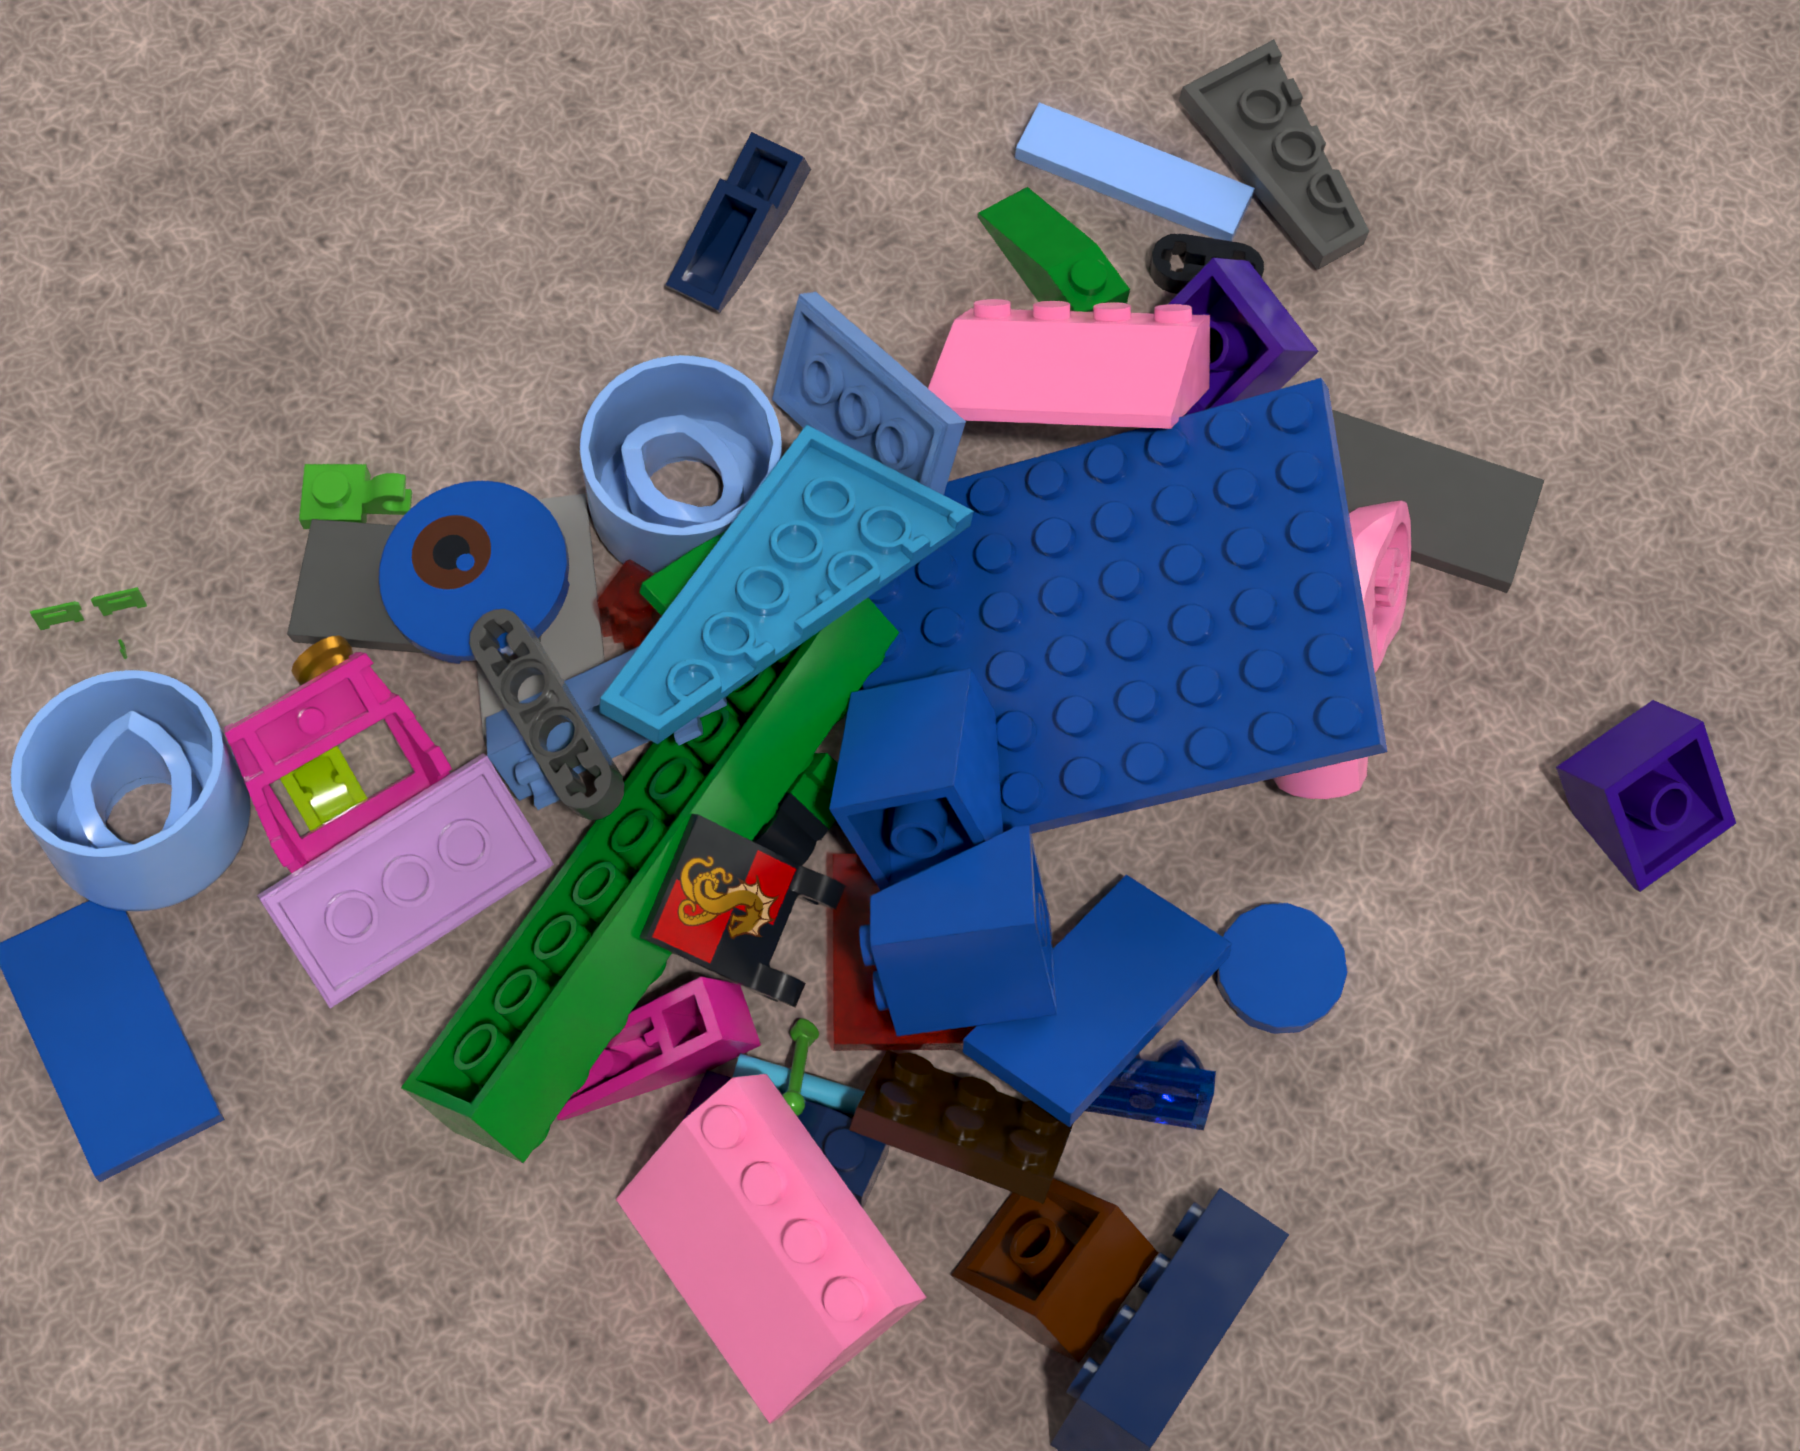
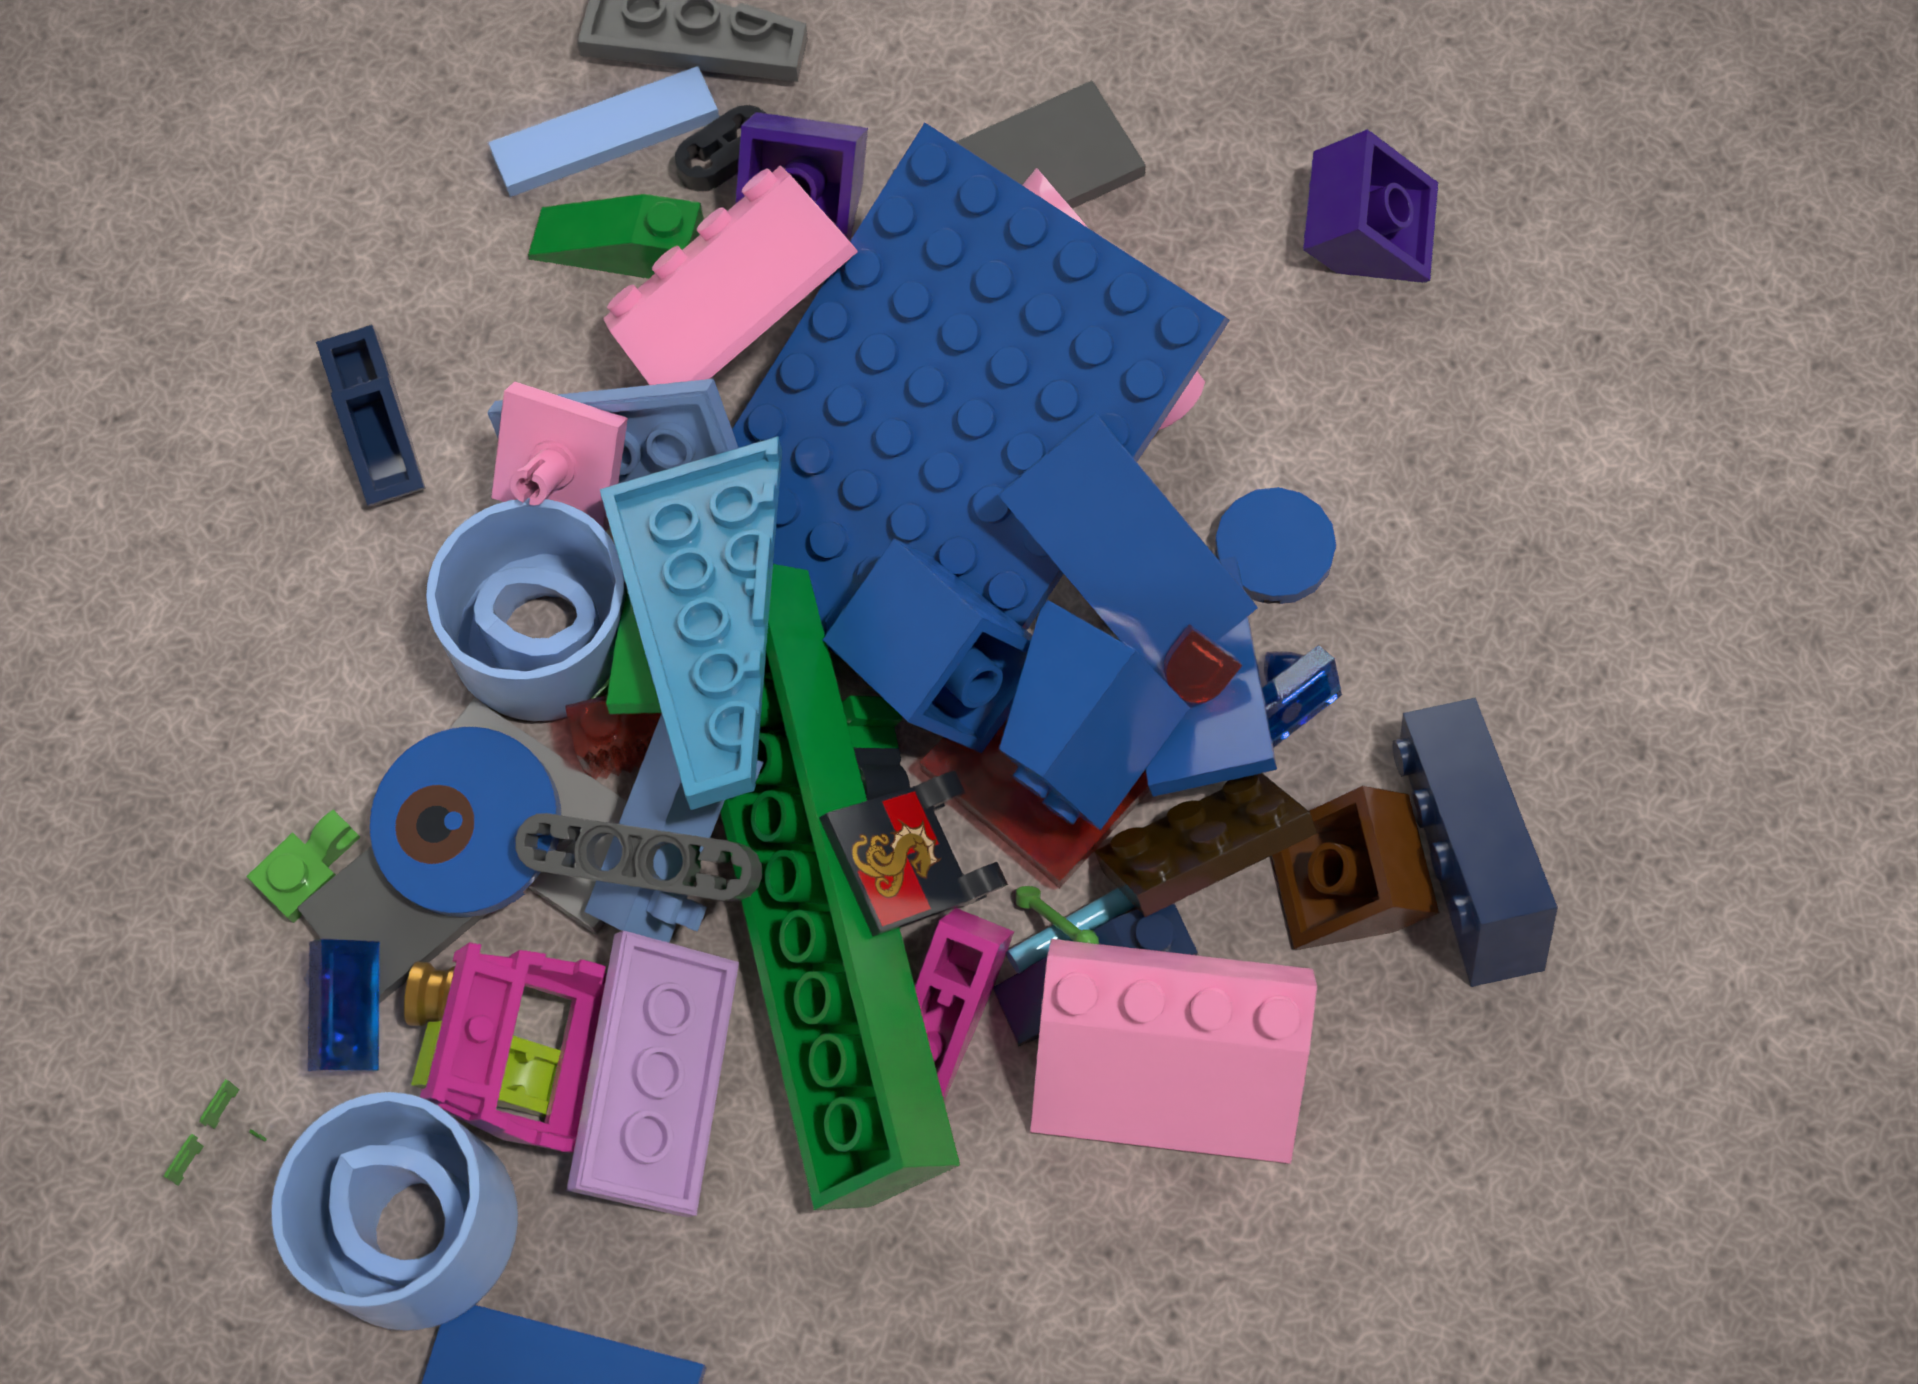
camera: 40 degrees left, 0 degrees up
(261, 617) = (343, 1005): none -> clear blue tile
(813, 369) = (557, 451): none -> bright pink tile
(1094, 991) = (1198, 667): none -> clear red tile
(1132, 850) = (1124, 544): none -> blue tile

